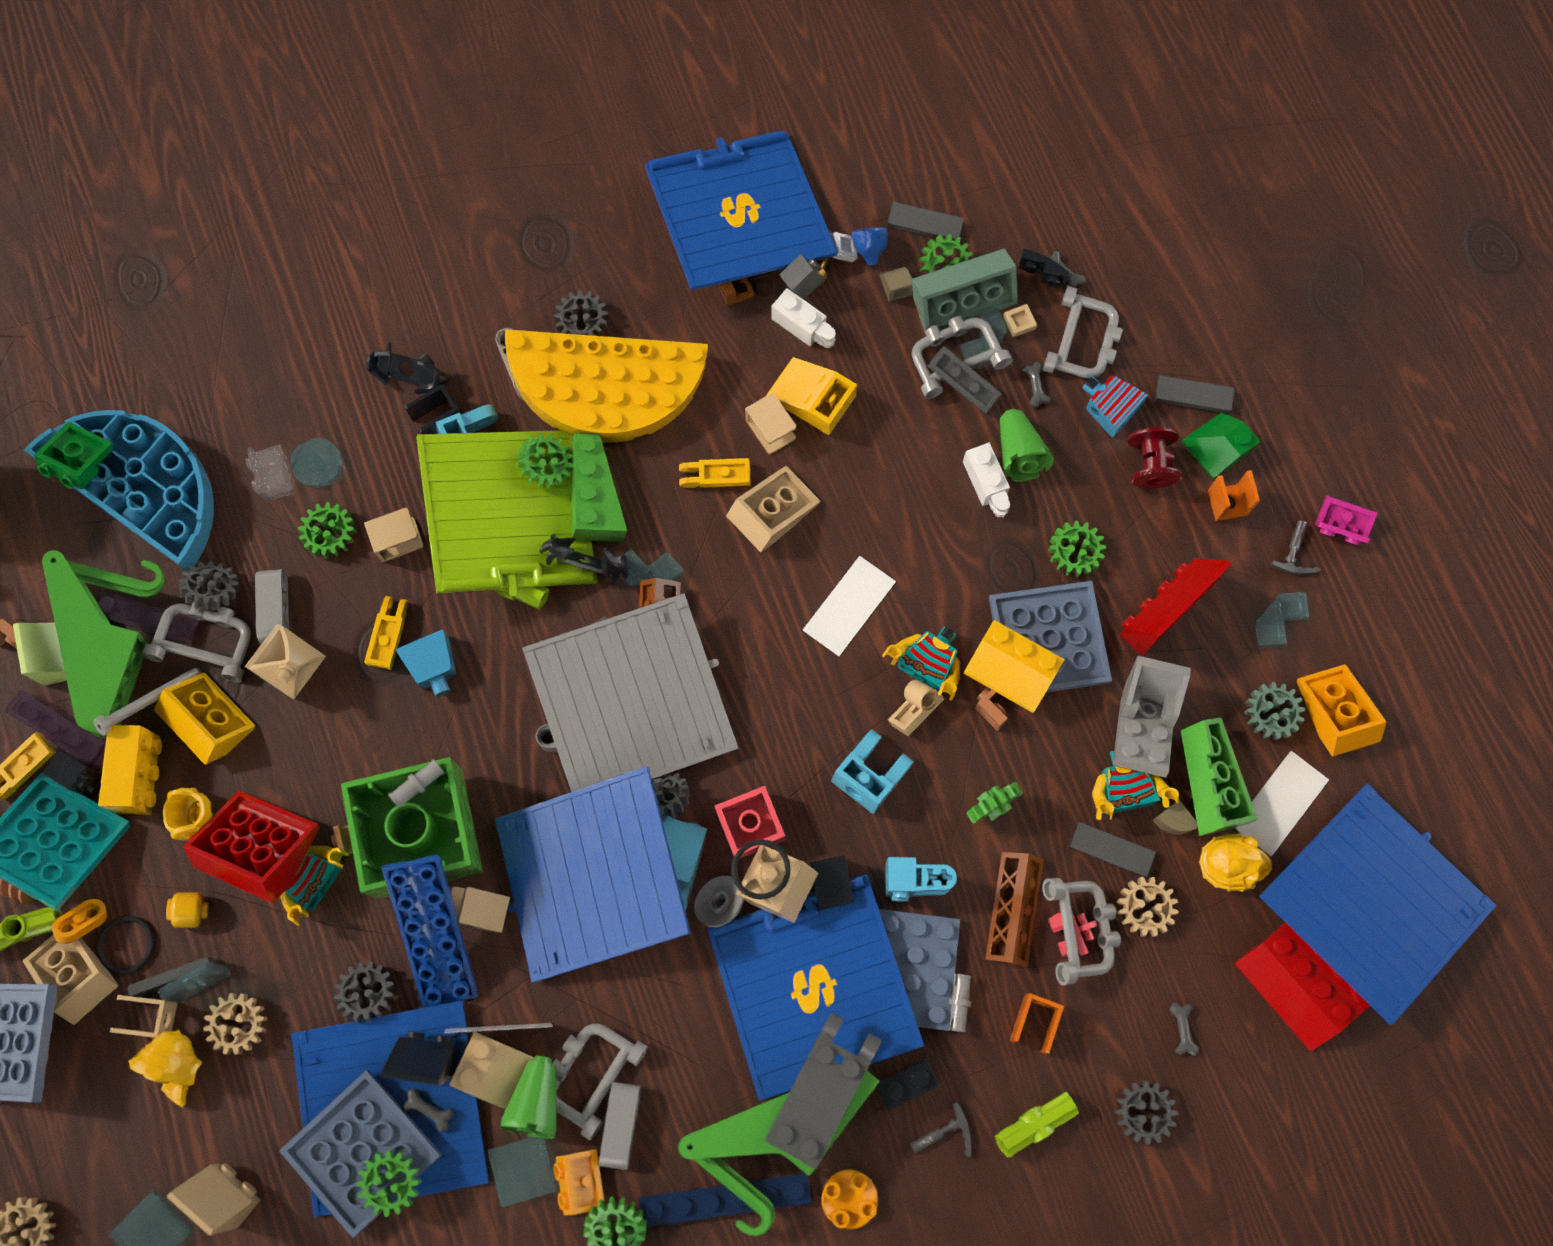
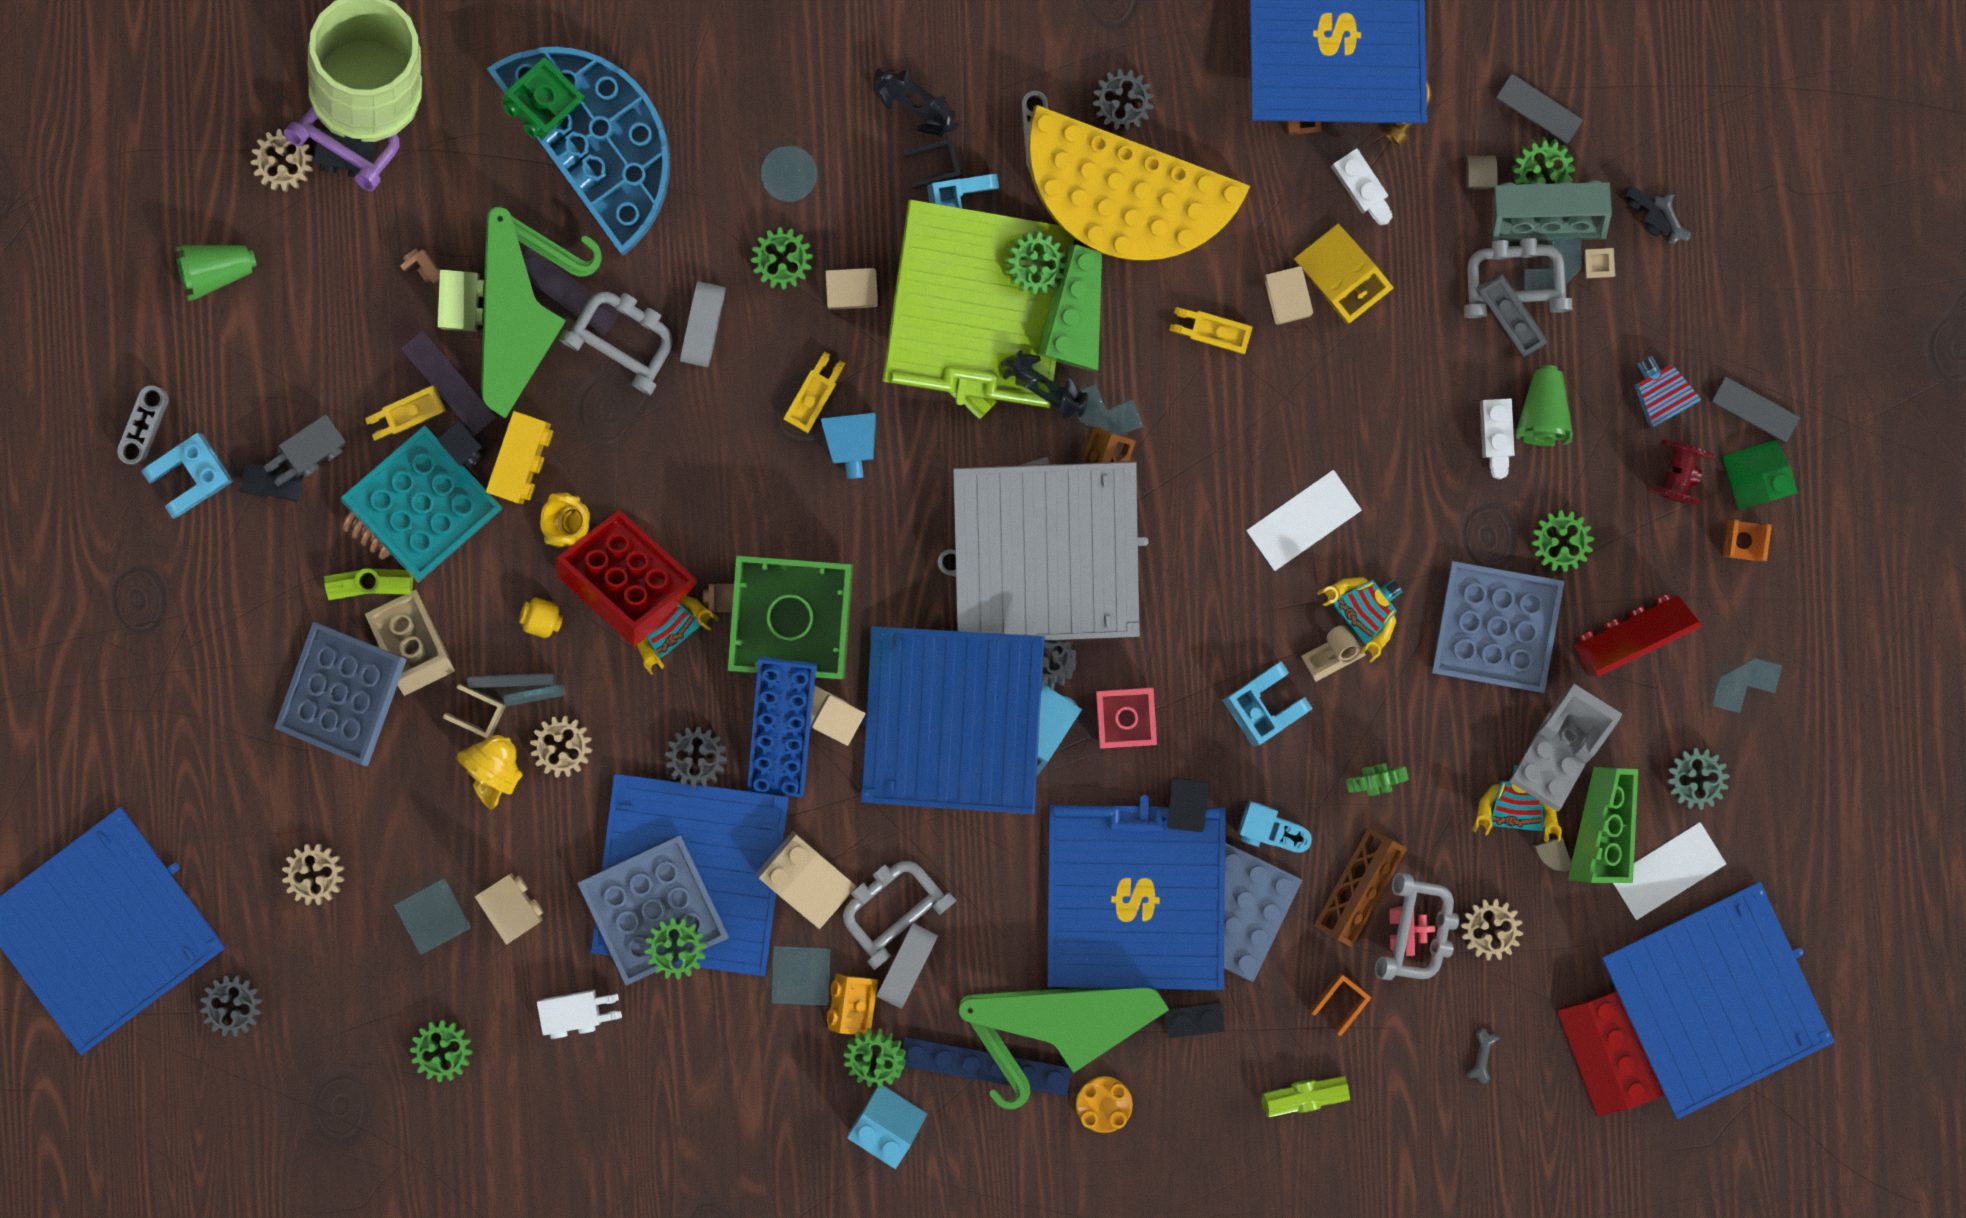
camera: 15 degrees right, 15 degrees up
(78, 921) = (430, 595): light orange plate -> none
(104, 724) = (511, 411): light grey bar -> none
(145, 925) = (495, 630): black tyre -> none
(198, 580) = (647, 297): dark grey gear -> none
(203, 717) = (604, 422): yellow slope -> none
(270, 472) = (739, 170): clear bracket -> none
(285, 661) = (704, 394): tan piece -> none
(416, 783) = (812, 582): light grey pin -> none
(422, 1058) = (740, 844): black slope -> none
(438, 1116) = (737, 901): dark grey piece -> none
(498, 1027) = (822, 838): white sticker -> none
(533, 1101) = (833, 917): bright green cone -> none
(711, 898) = (1066, 775): light grey dish -> none
(767, 873) = (1133, 789): tan piece -> none
(772, 508) = (1259, 390): tan slope -> none
(786, 875) = (1102, 795): black tyre -> none
(802, 276) = (1378, 139): dark grey brick -> none
(820, 1096) = (1109, 1004): dark grey hinge -> none
(844, 247) = (1439, 111): white tile -> none
(870, 243) = (1469, 115): blue helmet -> none
(938, 1133) = (1209, 1073): flat silver piece -> none
(960, 1003) = (1273, 959): light grey pin -> none
(991, 712) = (1411, 685): nougat bracket -> none
(1013, 666) = (1446, 649): yellow slope -> none
(1038, 395) = (1592, 327): dark grey piece -> none
(1111, 335) = (1694, 310): light grey bar -> none
(1112, 850) = (1479, 861): dark grey tile -> none
(1135, 1124) = (1429, 1112): dark grey gear -> none
(1234, 862) = (1595, 915): yellow head -> none
(1288, 566) = (1792, 612): flat silver piece -> none
(1341, 710) = (1765, 799): light orange slope -> none
(1345, 519) = (1855, 604): dark pink bracket -> none

